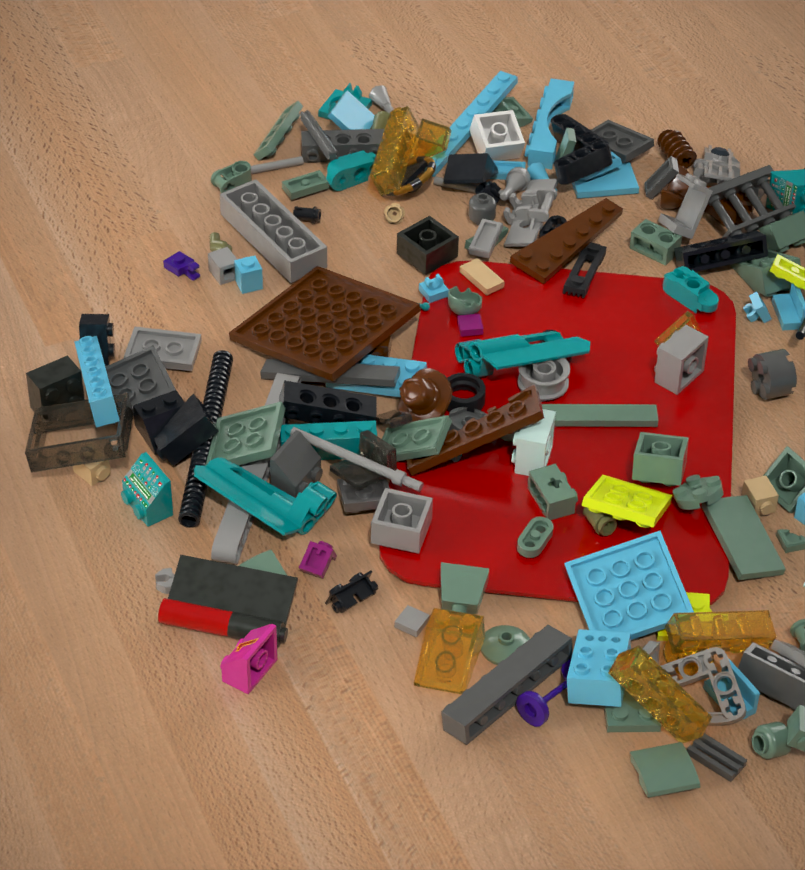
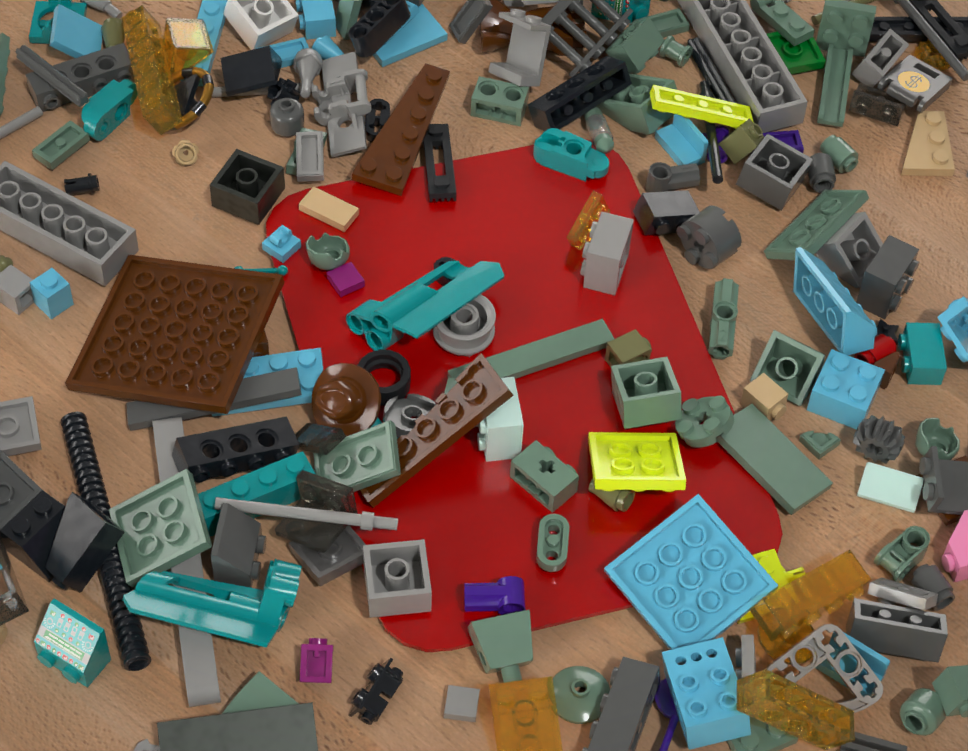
camera: 25 degrees left, 10 degrees up
(463, 554) = (504, 596): none -> dark purple piece
(664, 425) = (628, 349): none -> olive brick
(723, 280) = (599, 130): none -> piece
(742, 344) = (664, 211): none -> brick
(756, 309) = (648, 152): medium azure tile -> none
(756, 434) = (723, 318): none -> sand green piece
(761, 328) = (665, 178): none -> dark grey piece

